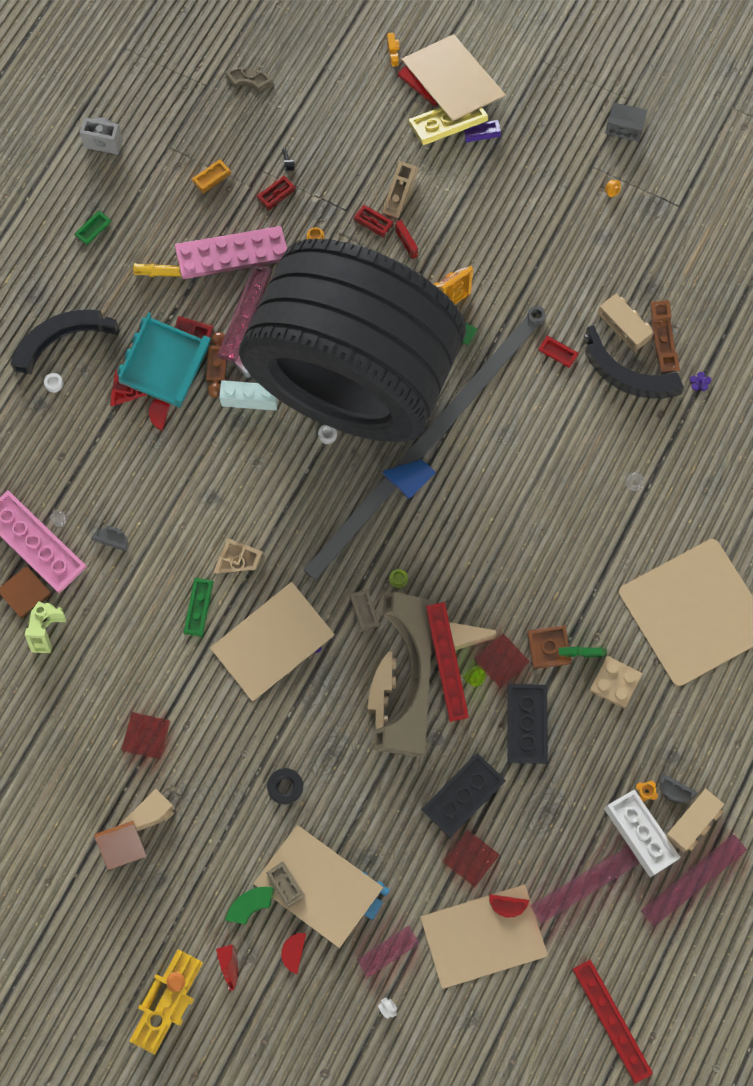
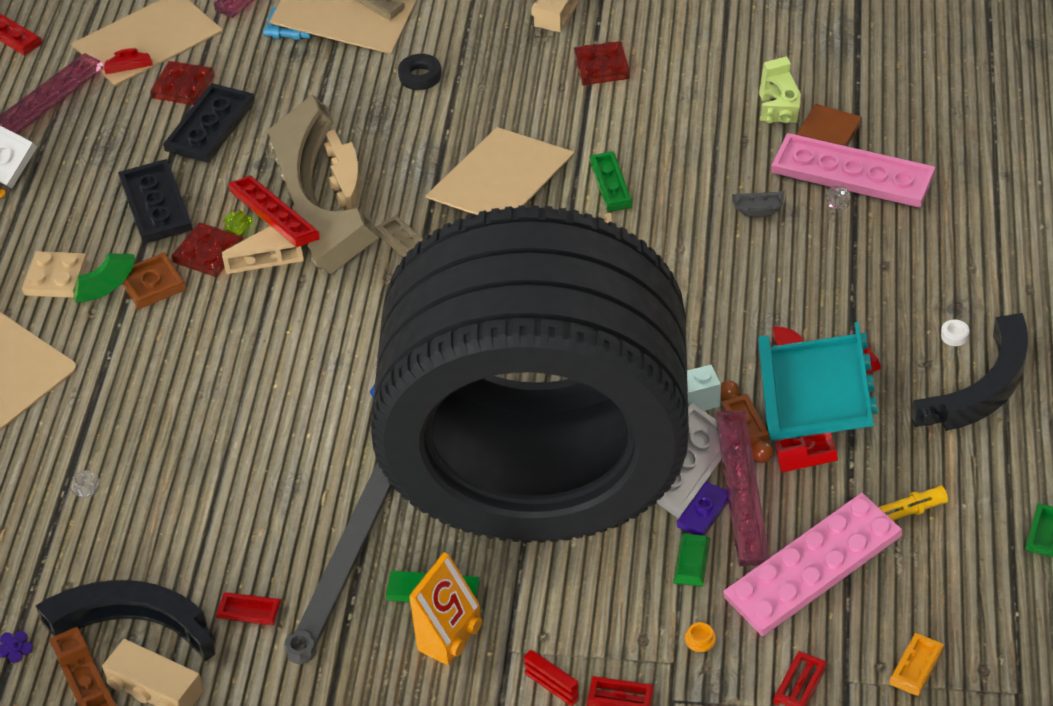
camera: 160 degrees right, 25 degrees down
(398, 578) = (372, 281): lime plate -> none

